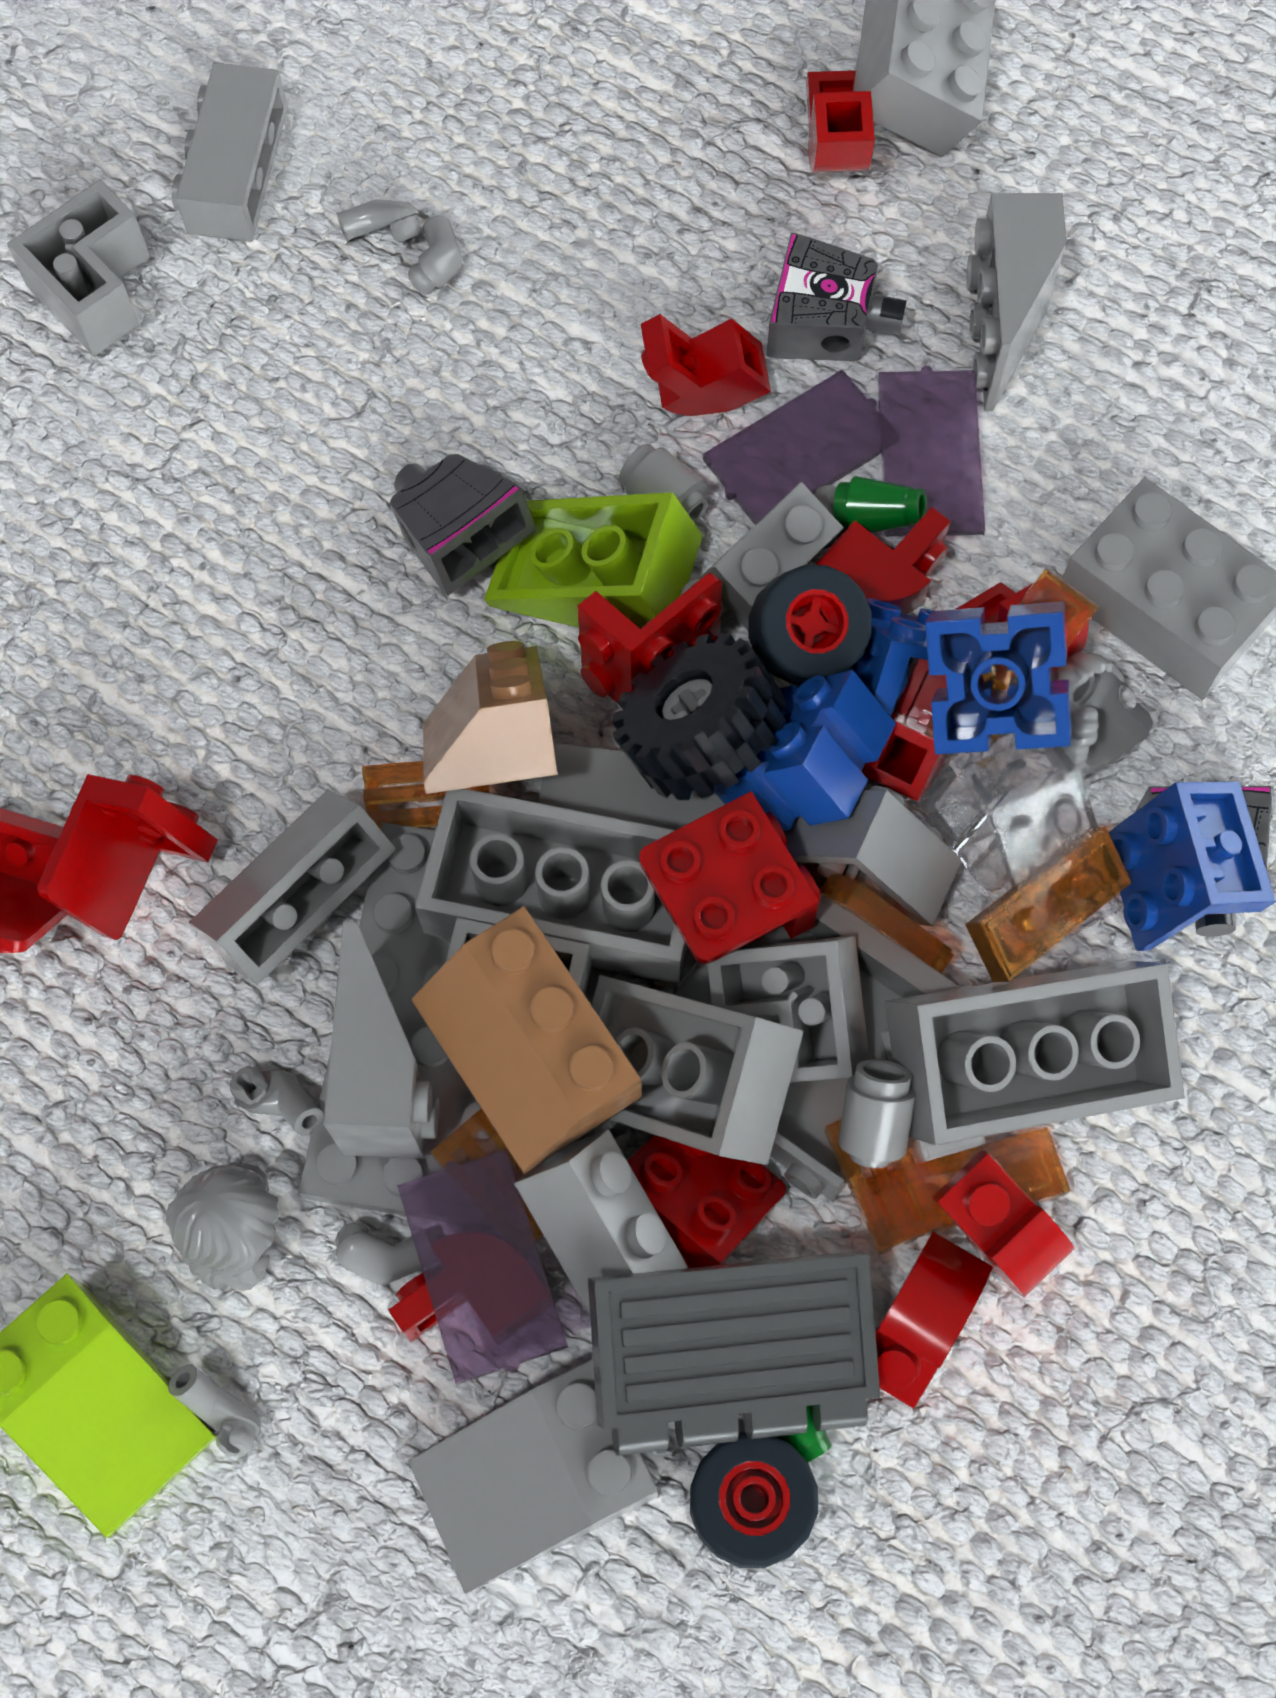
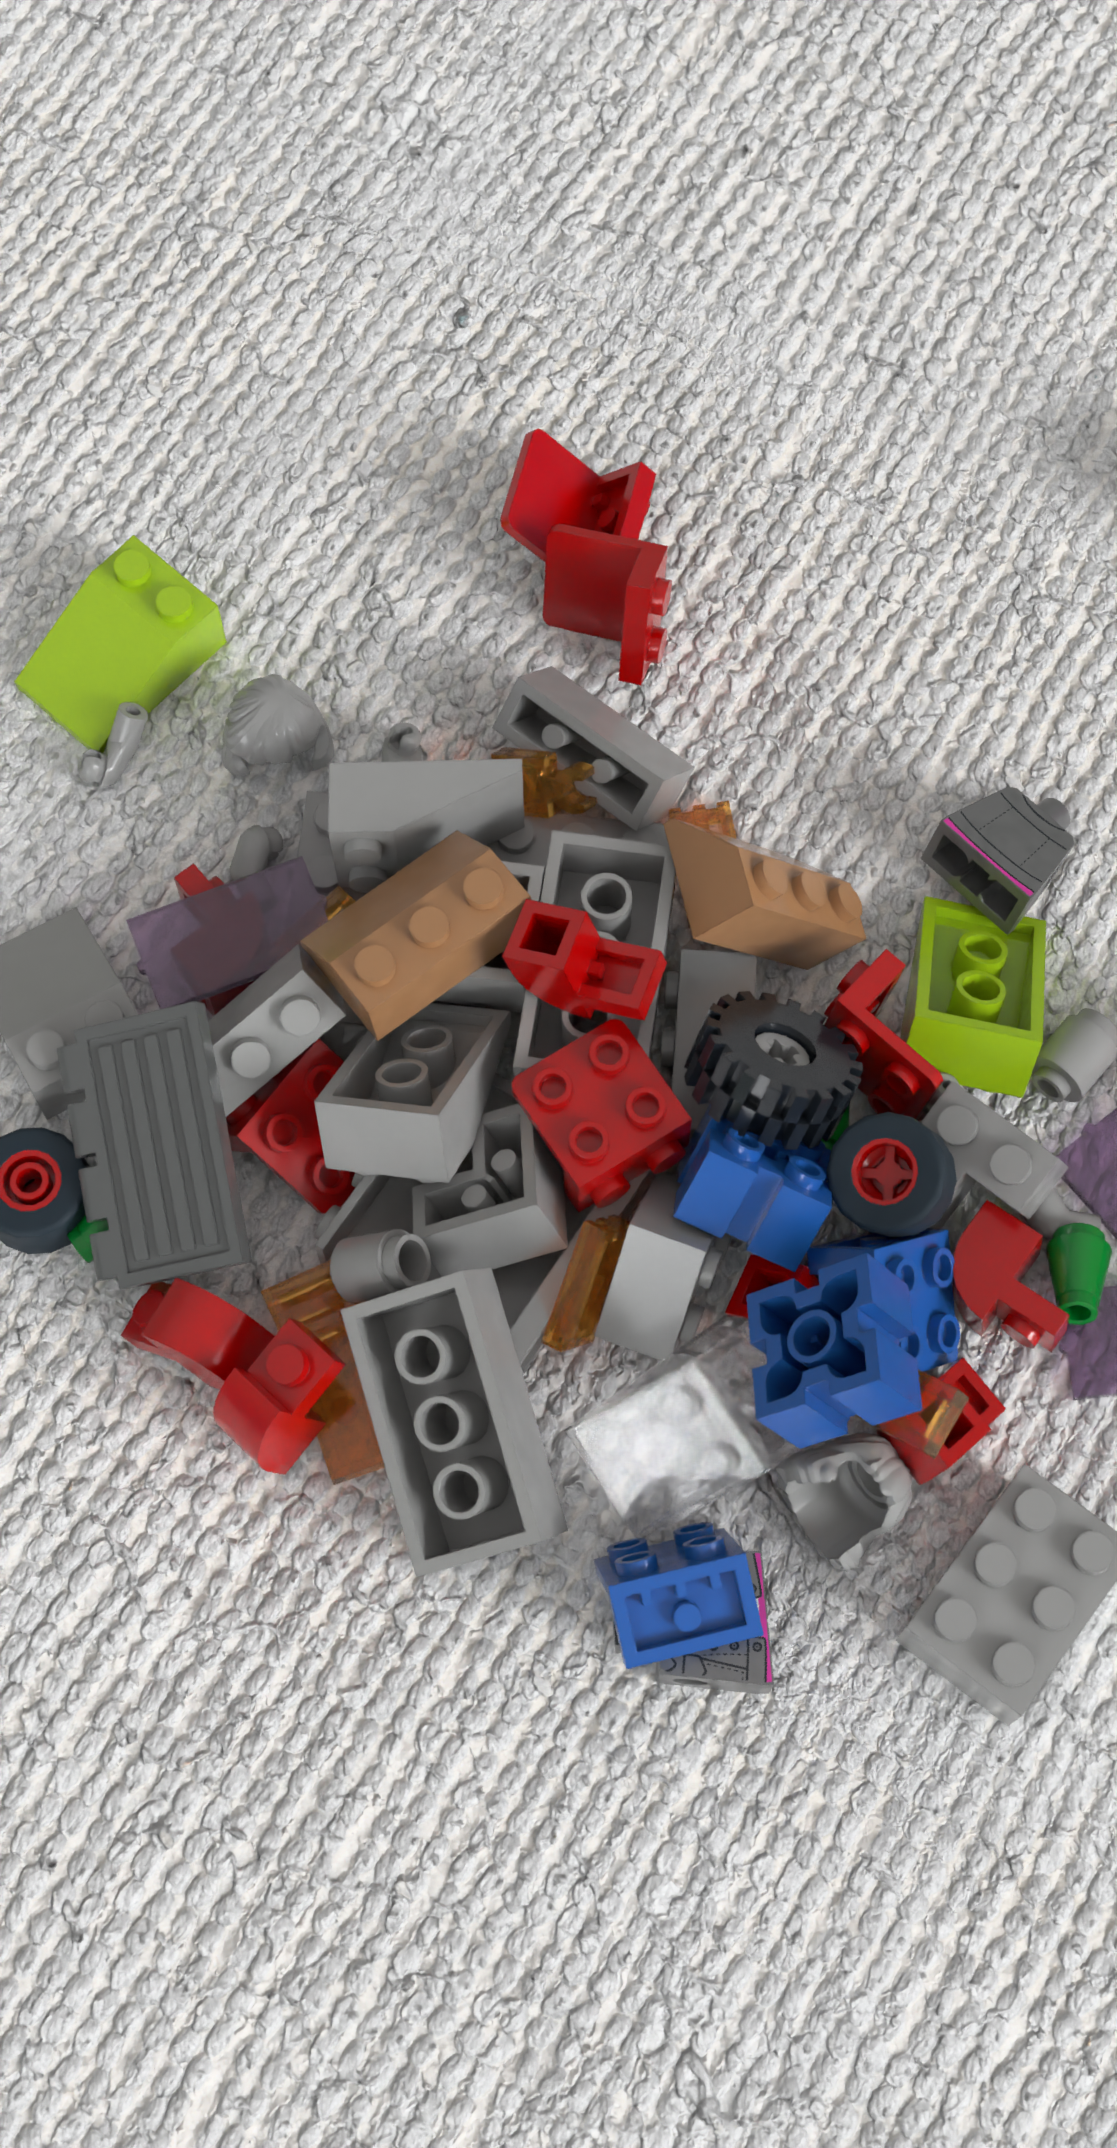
camera: 85 degrees right, 0 degrees up
(315, 949) = (547, 787): none -> clear orange plate
(592, 875) = (573, 968): none -> red brick
(1048, 904) = (614, 1438): clear orange tile -> none

